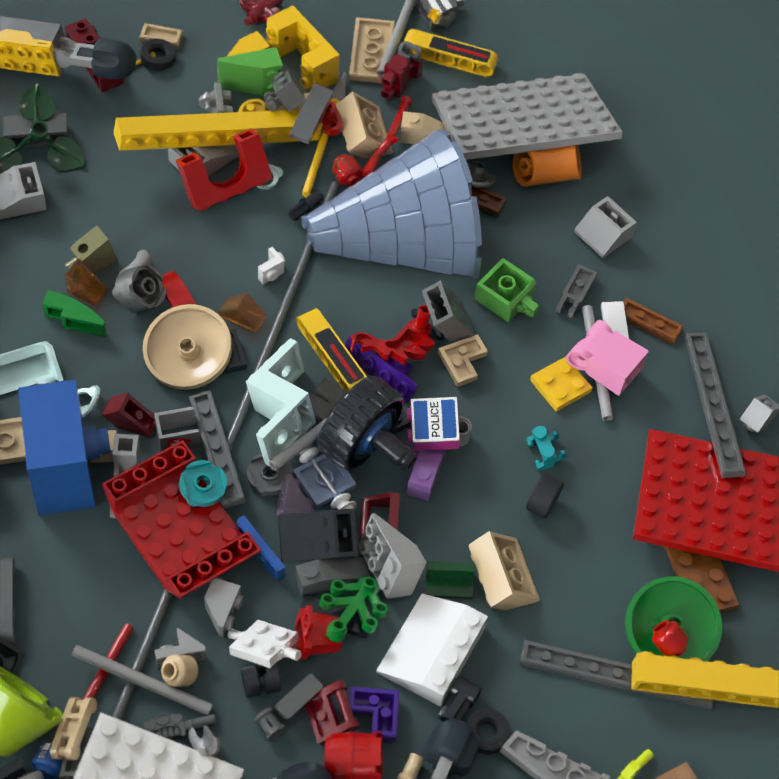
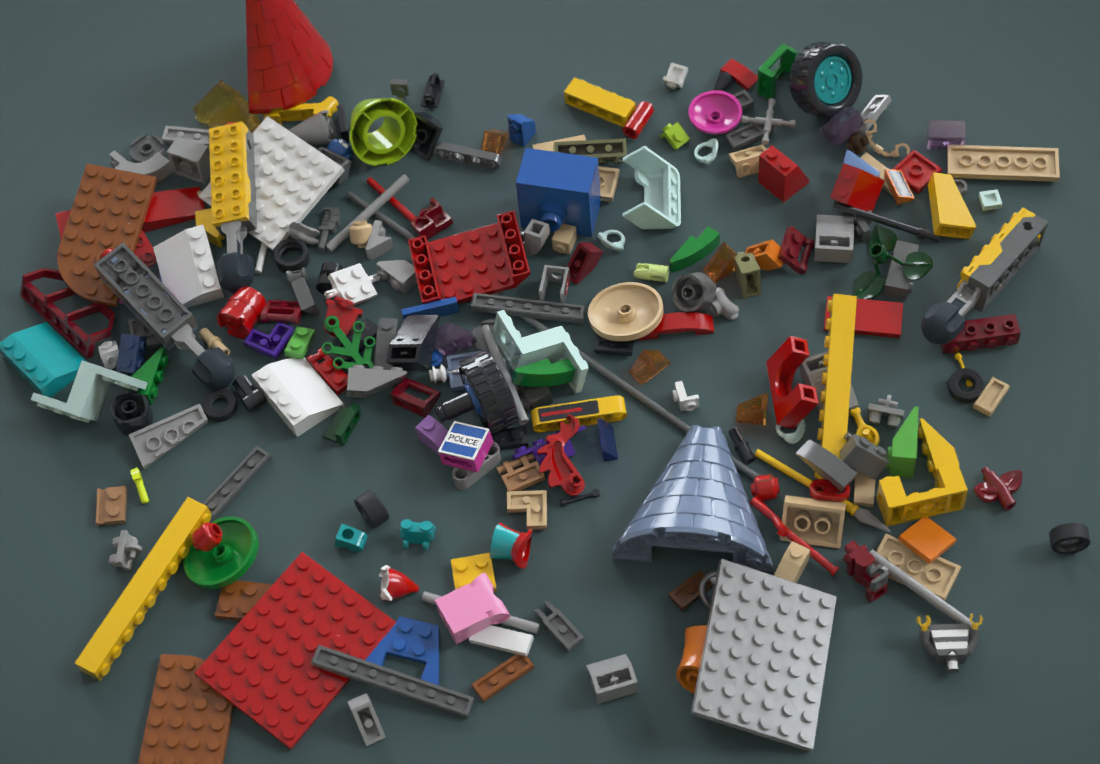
camera: 125 degrees right, 0 degrees up
(43, 221) = (791, 248): none -> dark red plate
(59, 249) = (766, 255): none -> orange slope
(72, 728) = (346, 156): tan plate -> none
(103, 159) = (876, 318): none -> red tile
(118, 344) = (652, 272): none -> yellowish green hinge
(122, 606) = (431, 220): none -> dark red slope
(209, 473) = (494, 288): teal plate -> none
(242, 727) = (288, 245): none -> black tyre
(261, 203) = (753, 410): none -> clear orange slope
(307, 379) = (544, 373): none -> green slope
(346, 41) = (927, 539): none -> orange tile
(354, 320) = (607, 440): none -> clear blue slope
(365, 674) = (300, 342): none -> bright green plate
(386, 629) = (334, 378): none -> red plate
(432, 377) = (523, 477): none -> medium nougat plate
(447, 312) = (568, 500): dark grey brick -> none
(453, 53) = (882, 632): yellow beam -> none
(503, 571) = (328, 461): tan slope -> none
(507, 291) = (577, 563): bright green hinge -> none
(519, 350) = (511, 545): none -> hat
(585, 510) = (350, 538): none -> teal leg
(617, 443) = (395, 584): none -> red hat
(659, 406) = (413, 642): none -> blue wing
(713, 742) = (126, 548): none -> light grey hips

